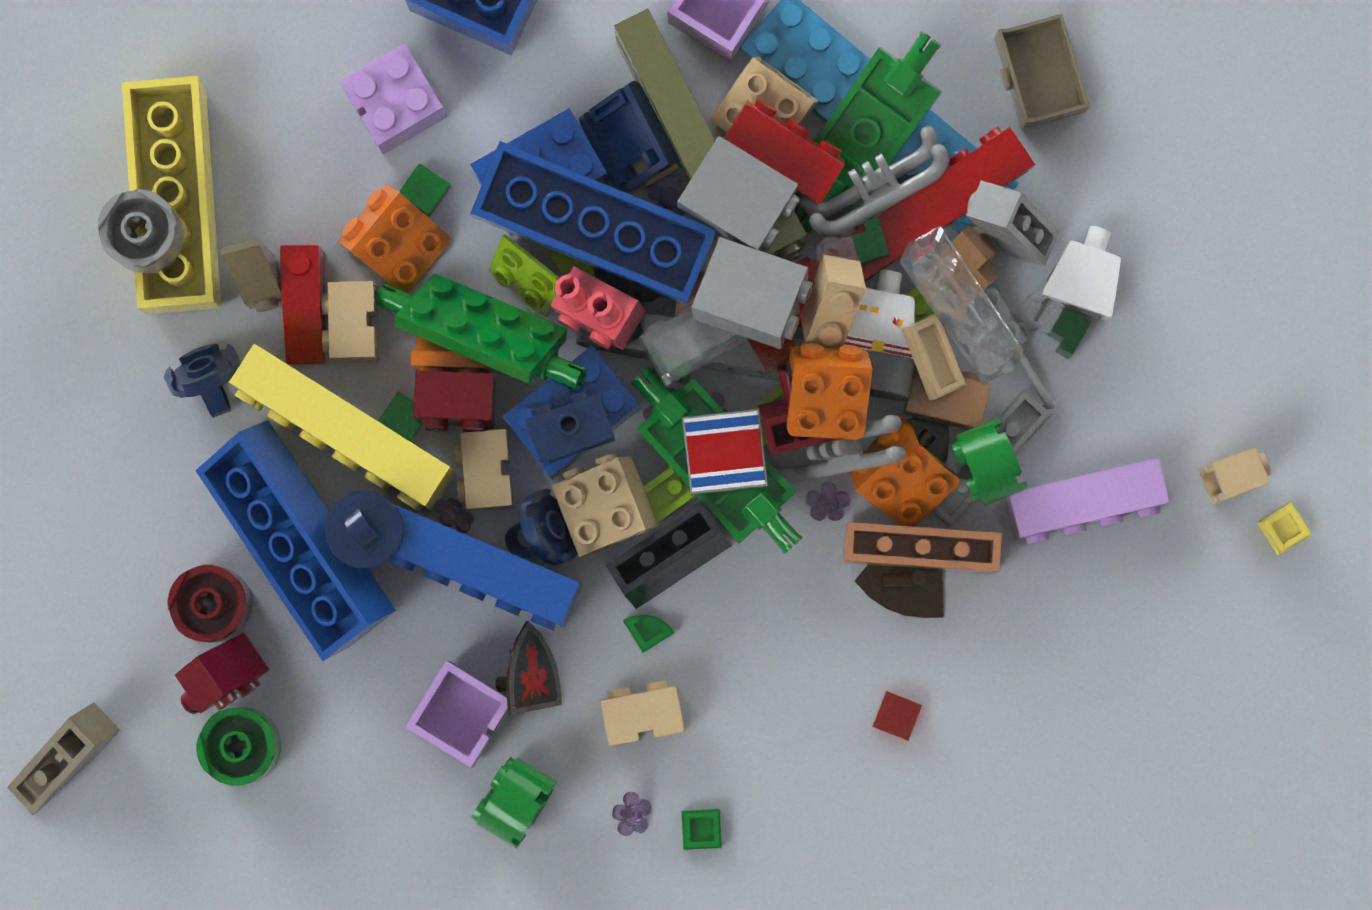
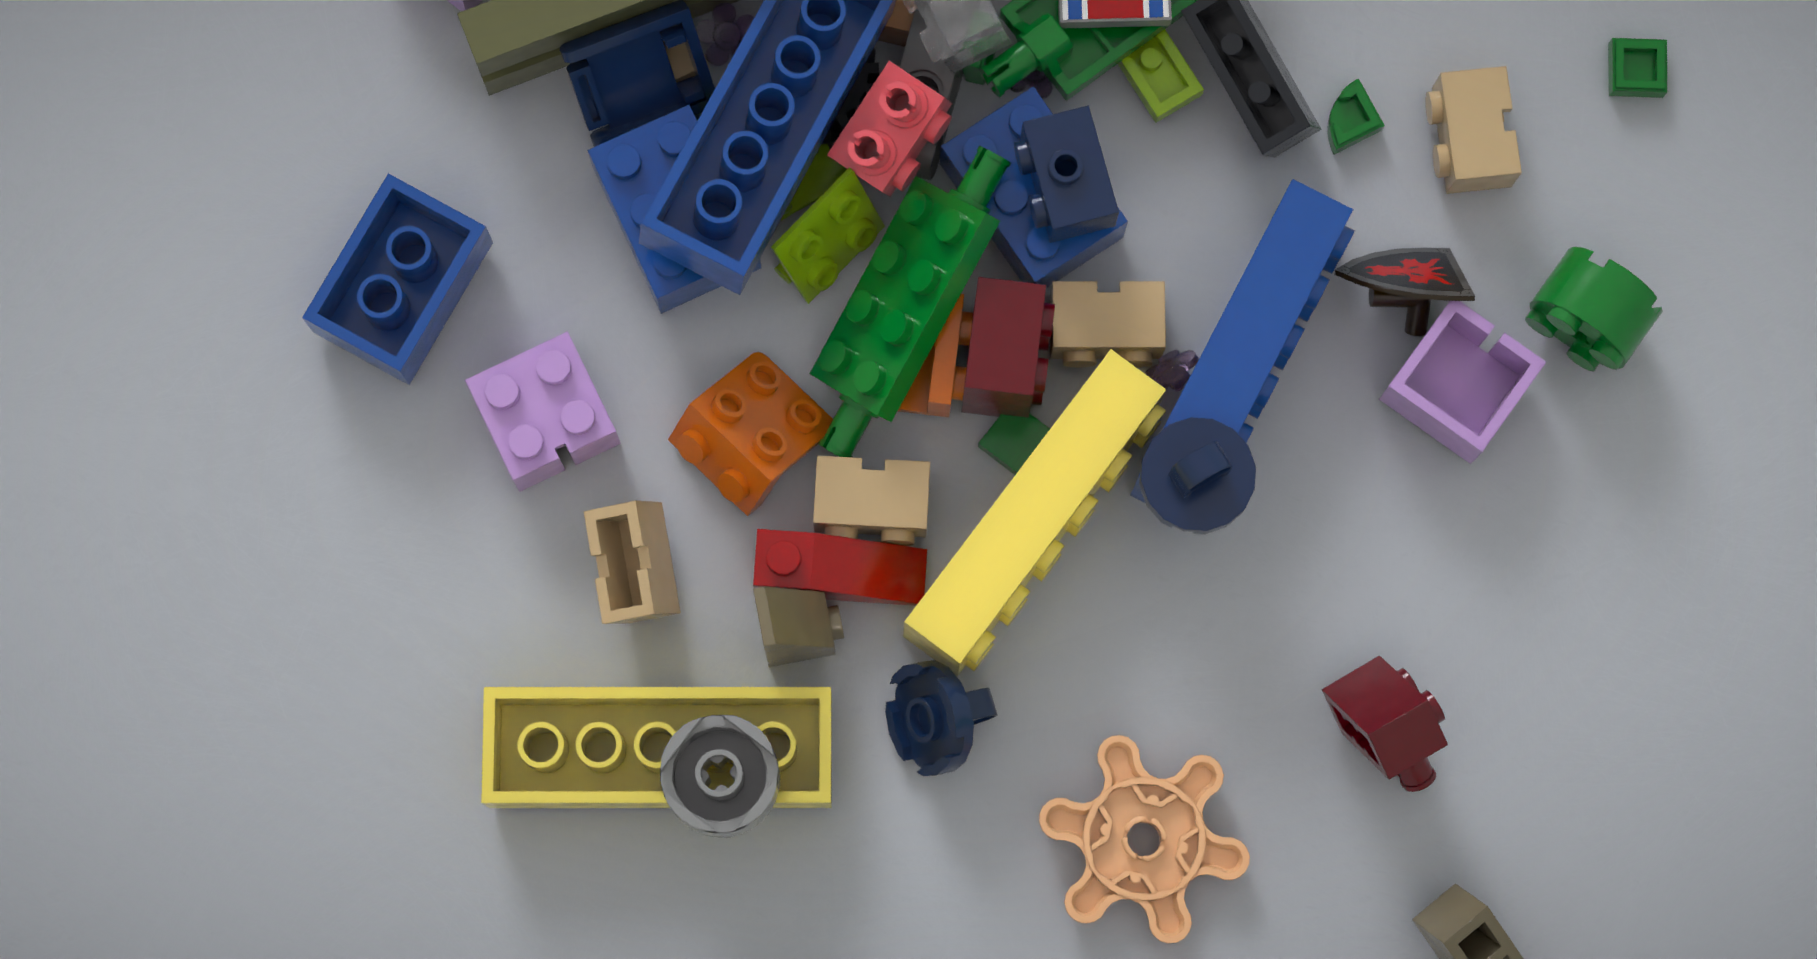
camera: 90 degrees left, 5 degrees down
(110, 524) = (1184, 847): none -> light nougat plate
(190, 614) = (1310, 726): dark red brick -> none
(219, 734) = (1506, 676): green brick -> none
(285, 533) = (1195, 597): blue brick -> none
(294, 166) = (632, 562): none -> tan brick
(425, 189) = (679, 380): green tile -> none
(543, 530) = (1201, 237): dark blue tile -> none
(604, 504) = (1172, 153): tan brick -> none
(632, 814) = (1614, 158): clear purple plant -> none

